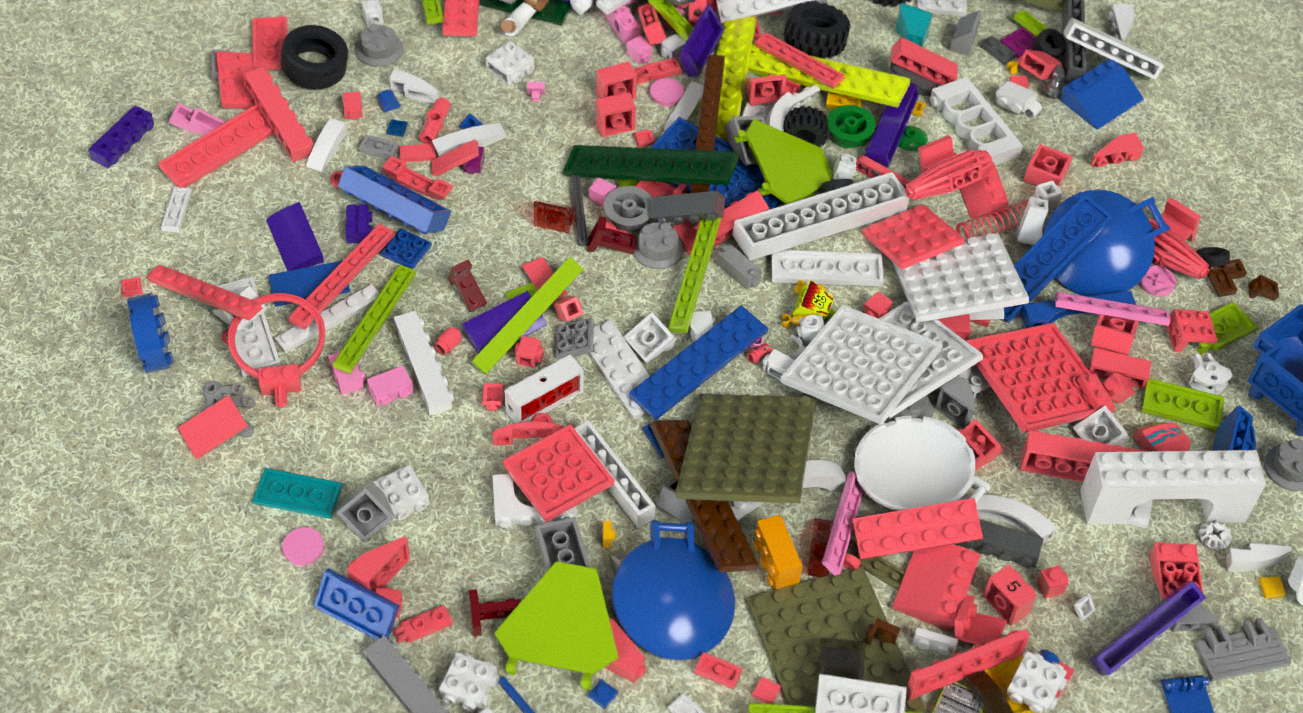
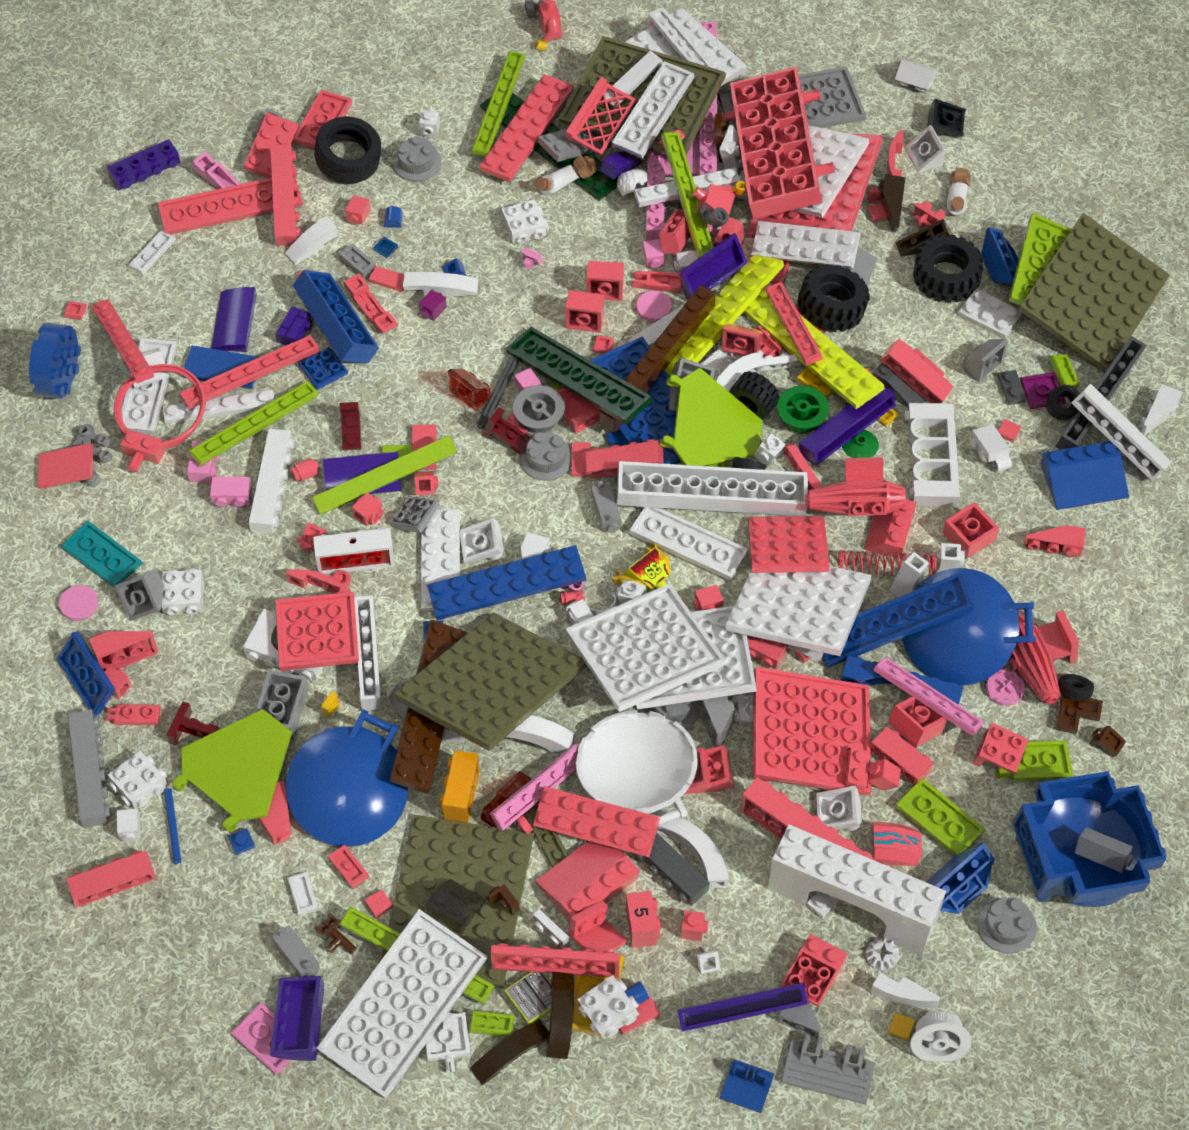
camera: 30 degrees right, 5 degrees up
(413, 86) = (421, 211): white slope -> none
(435, 120) = (421, 253): coral piece -> none
(455, 158) = (413, 297): coral tile -> none
(687, 207) = (584, 431): dark grey brick -> none
(694, 276) = (557, 494): lime tile -> none
(914, 24) = (937, 331): teal slope -> none
(1043, 67) = (1039, 422): coral torso -> none
(1209, 374) = (983, 801): white hinge -> none

